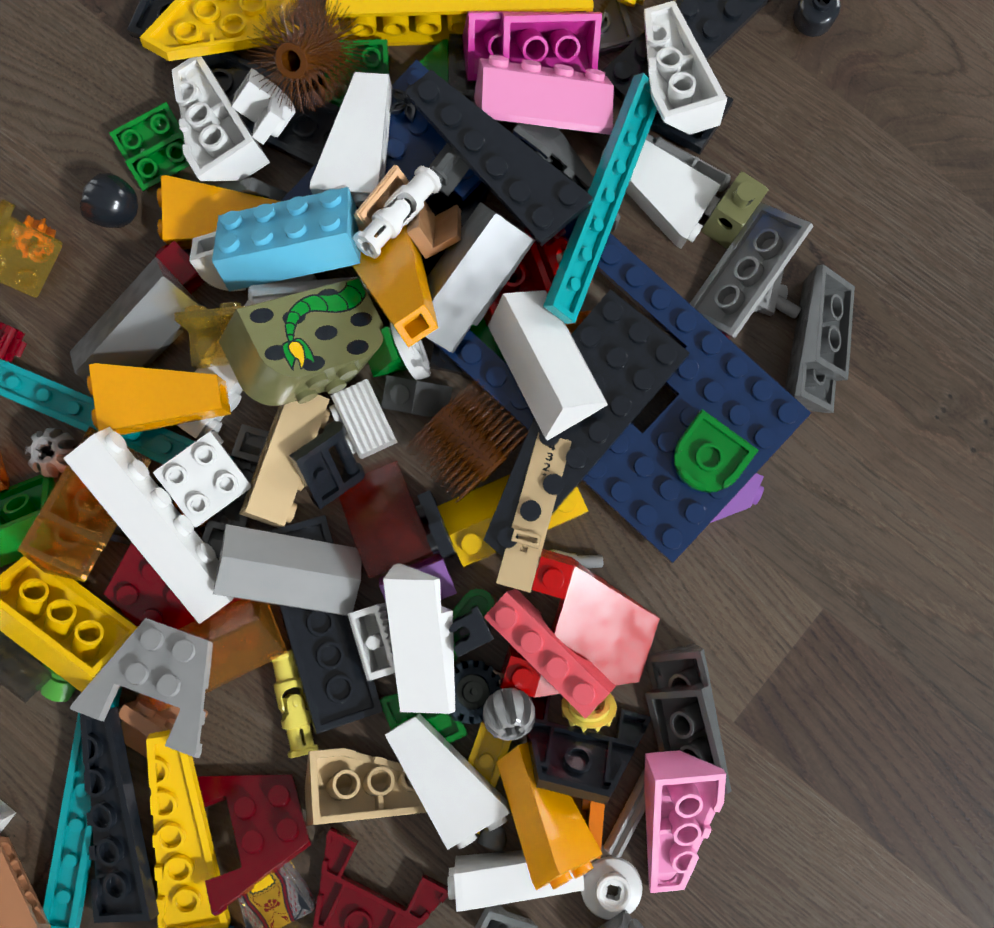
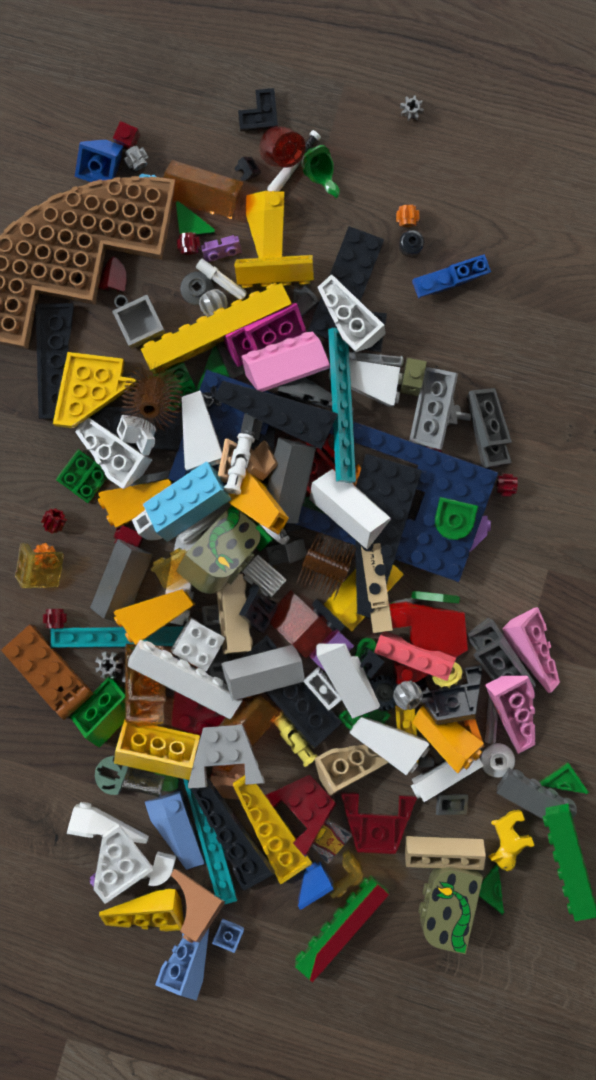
camera: 25 degrees left, 5 degrees up
(37, 758) = (174, 824): none -> medium blue wedge
(70, 189) = (53, 520): none -> dark red gear
(109, 201) = (75, 518): black hair -> none
(624, 572) = (435, 597): none -> green tile
(745, 711) = (529, 642): none -> bright pink wedge
(814, 442) = (507, 485): none -> dark red gear
(858, 90) = (451, 277): none -> blue slope

